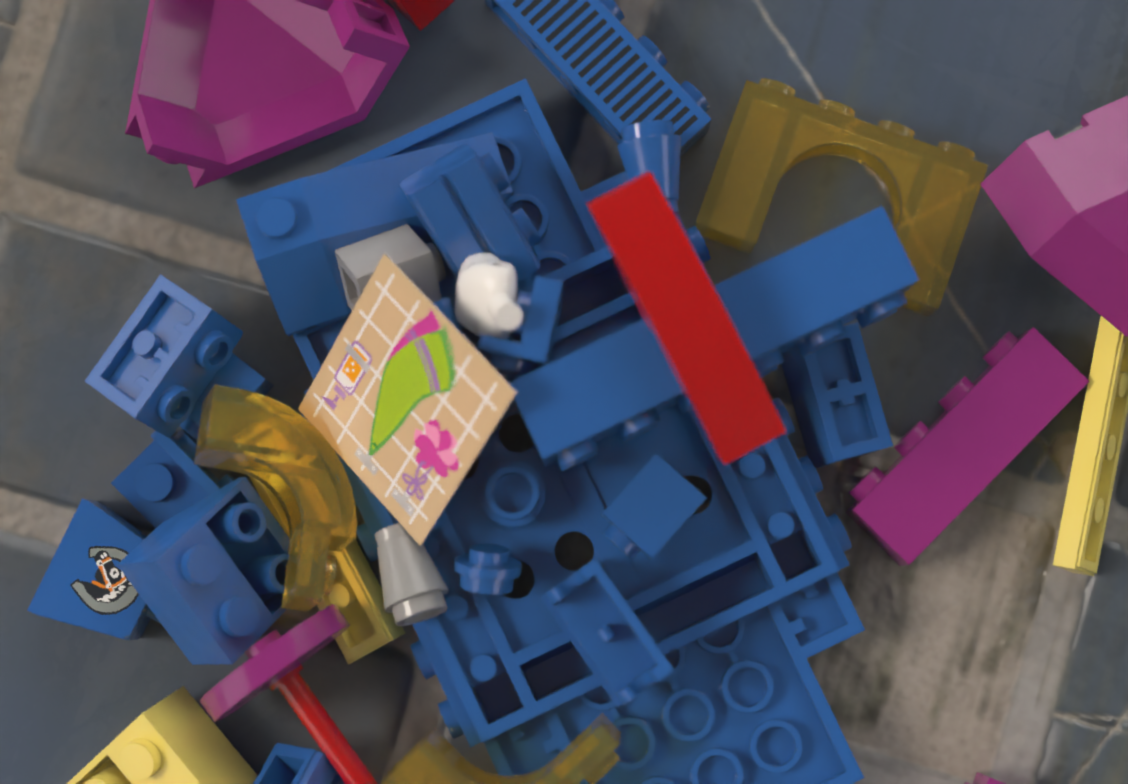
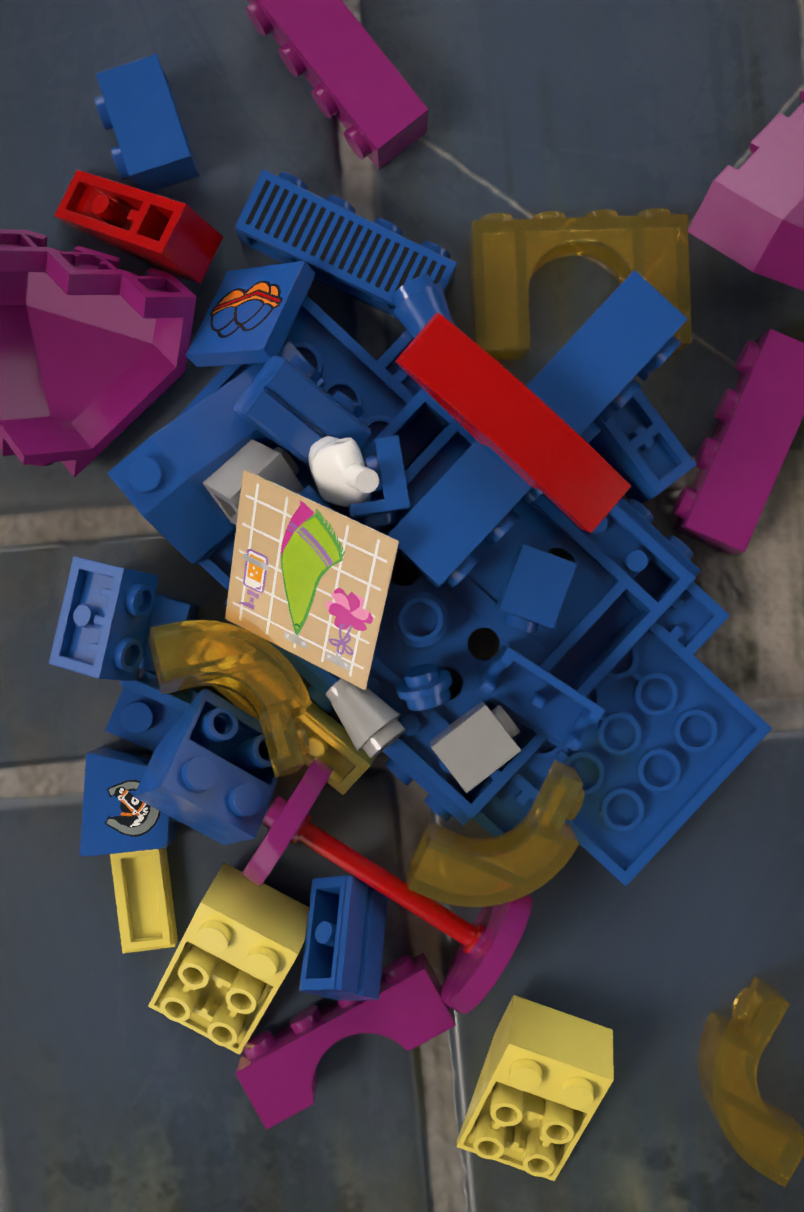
camera: 20 degrees left, 5 degrees up
(75, 692) = (144, 900): none -> light yellow tile
(461, 88) = (251, 315): none -> blue tile
(519, 656) = (476, 744): none -> light grey brick

